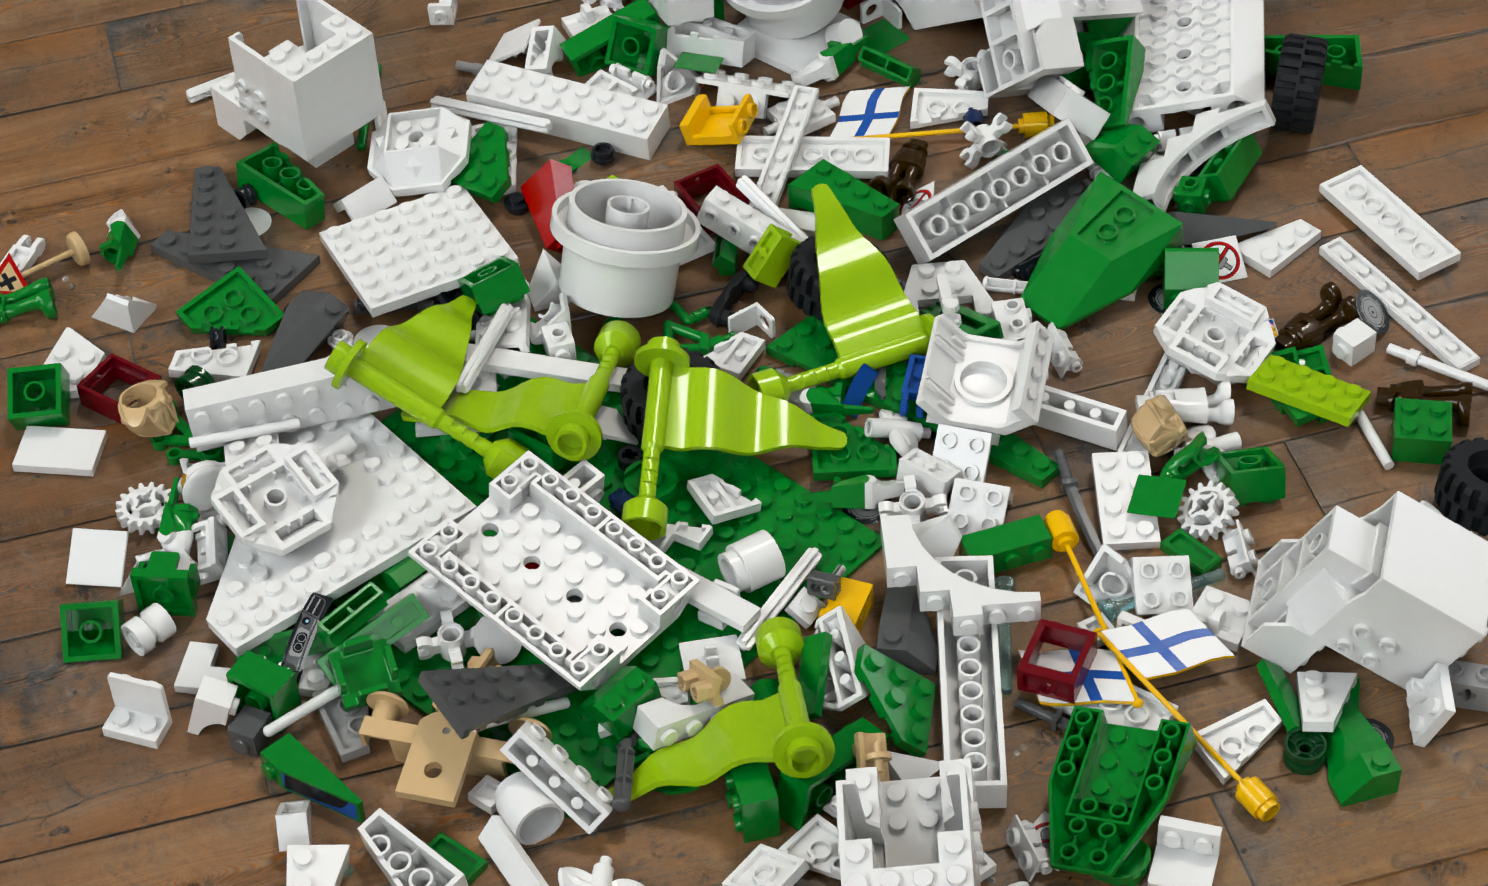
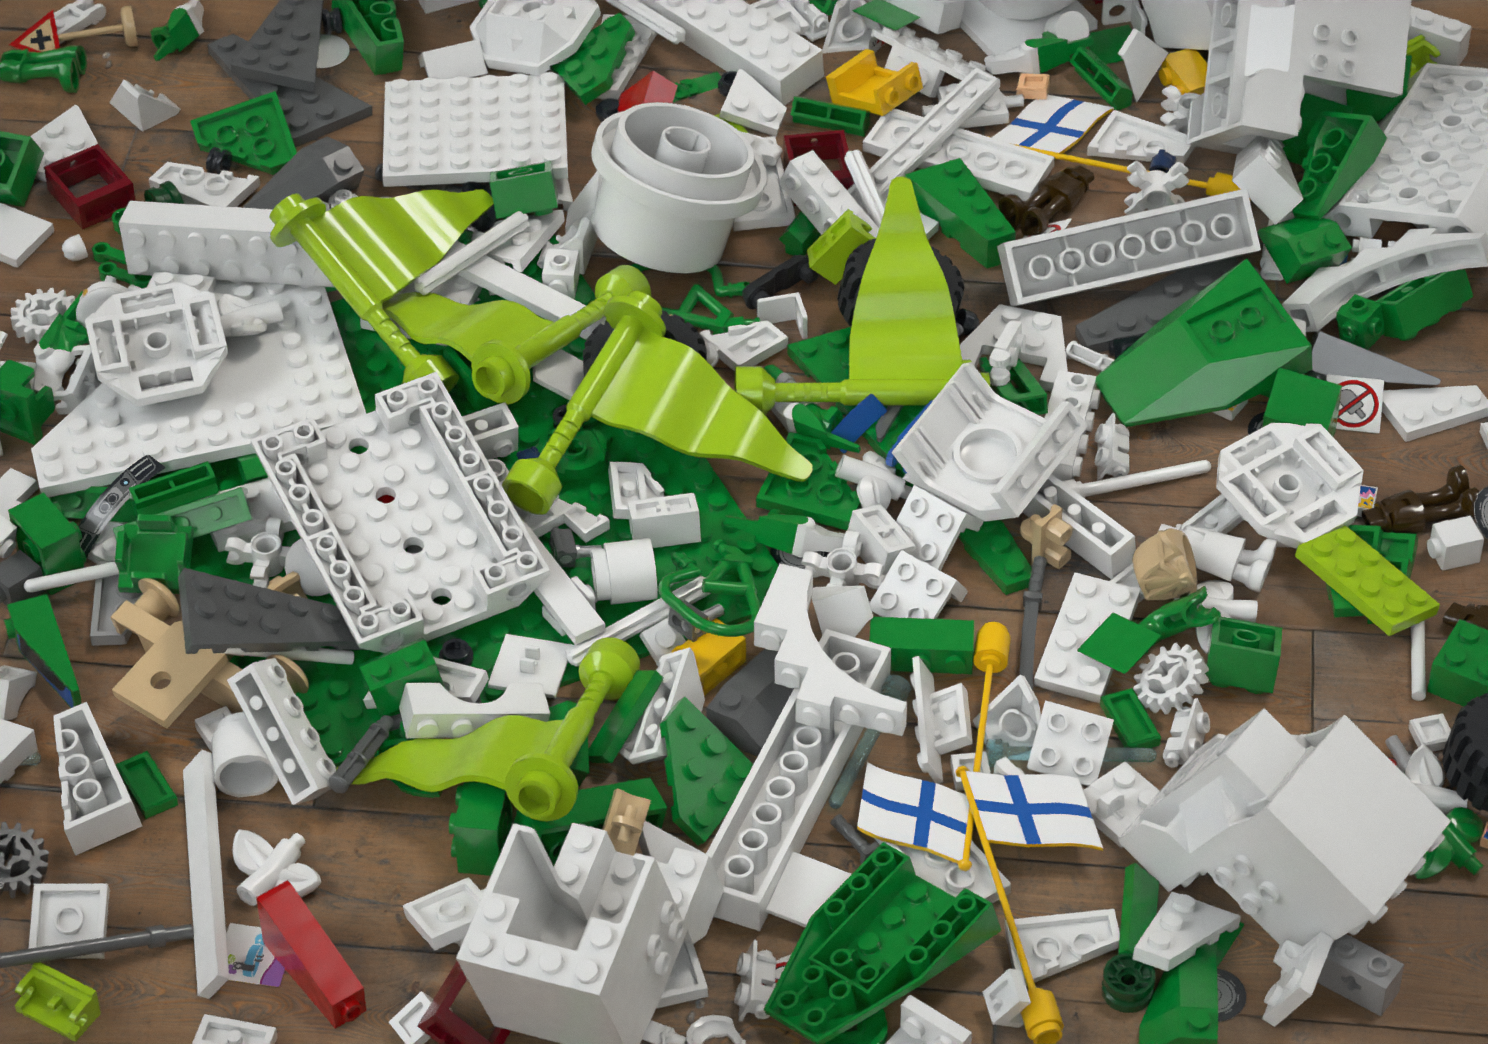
camera: 20 degrees right, 0 degrees up
(137, 445) = (74, 248): none -> white hinge
(152, 413) = (97, 220): tan piece -> none
(243, 433) = (175, 266): white bar -> none
(631, 164) = (753, 106): none -> white wing
(653, 668) = (457, 651): none -> black plate
(689, 559) = (564, 548): none -> dark grey piece
(695, 156) = (830, 115): none -> green piece
(704, 682) = (490, 681): tan hips -> none
(757, 511) = (665, 520): none -> white hinge
(831, 529) = (732, 563): none -> green piece
(839, 87) = (1033, 86): none -> light nougat tile
(917, 43) = (1141, 60): none -> white slope
(956, 42) = (1185, 71): none -> yellow brick
(1030, 763) = (804, 888): none -> white piece
(1054, 431) = (1048, 536): none -> tan hips
(1057, 596) = (942, 719): none -> white bracket
(1063, 685) = (880, 812): dark red window -> none
(1097, 365) = (1139, 479): none -> white piece
(1228, 793) = (1007, 998): none -> white bracket
(1415, 488) = (1430, 731): none -> white tile

